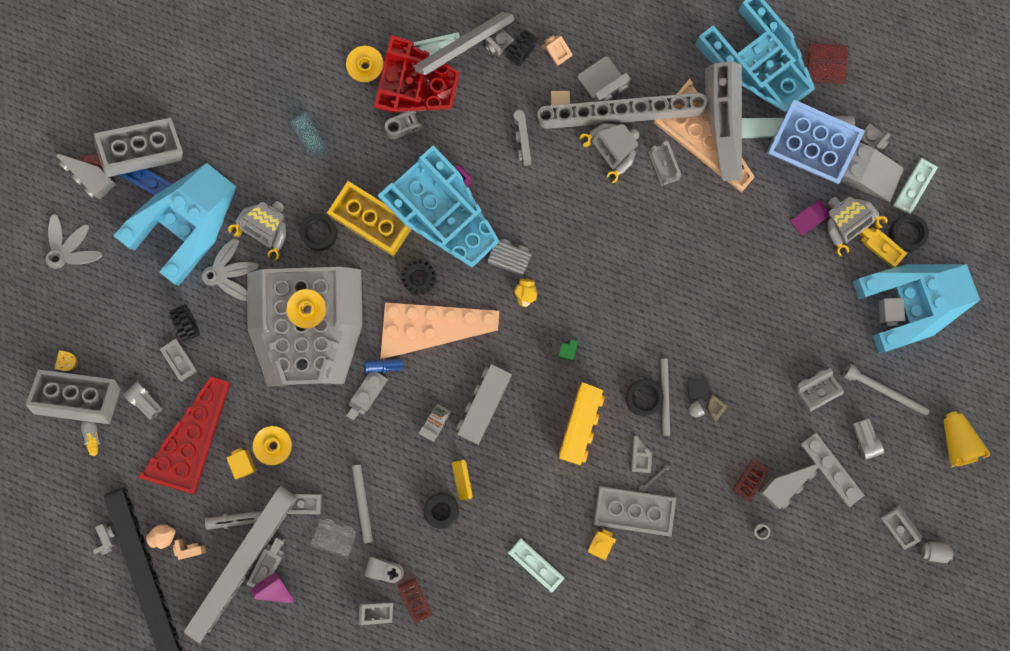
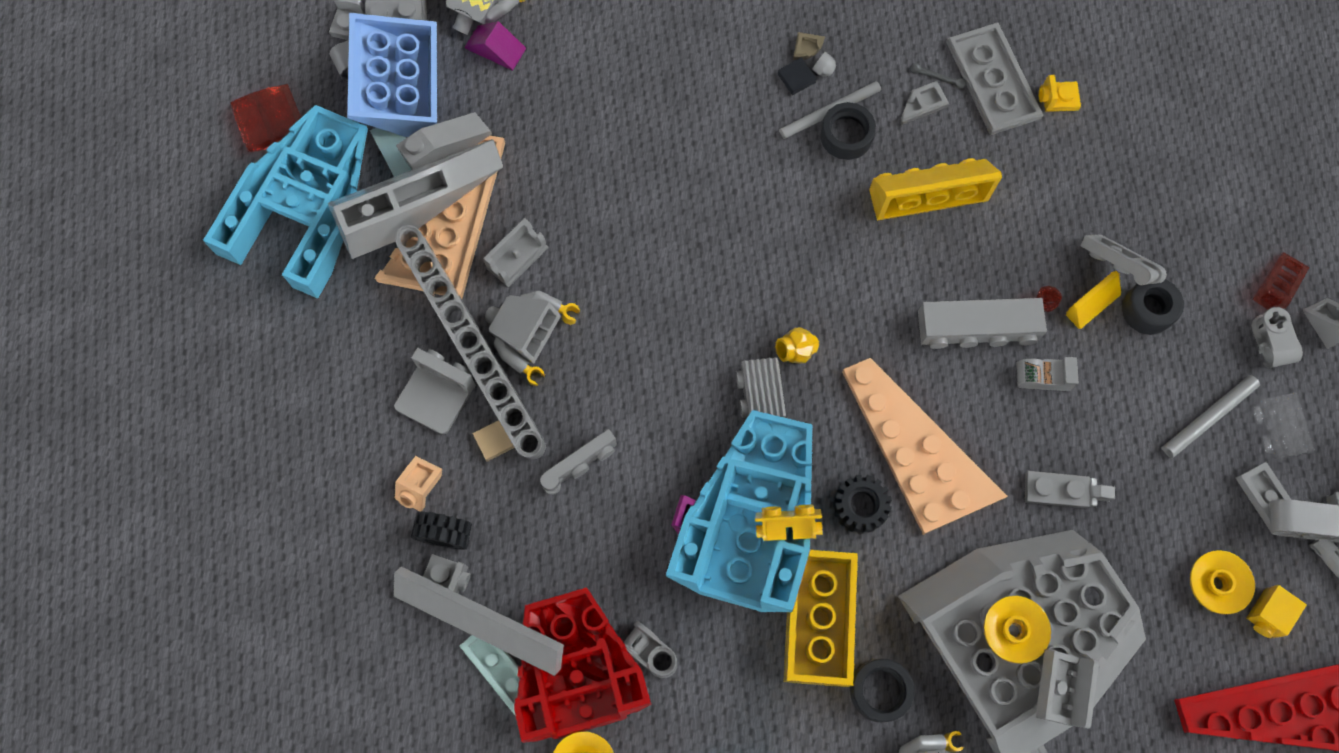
camera: 120 degrees left, 10 degrees down
(264, 315) = (1067, 689): none -> light grey bracket
(383, 365) = (1015, 486): blue axle -> none
(428, 212) = (801, 520): none -> yellow hinge
(475, 507) = (1124, 259): none -> light grey plate
(481, 454) = (1049, 294): none -> clear red hinge
(536, 565) = (1136, 160): light aqua tile -> none
(558, 349) = (849, 263): leg -> none
(755, 152) = (443, 140): none -> light grey slope

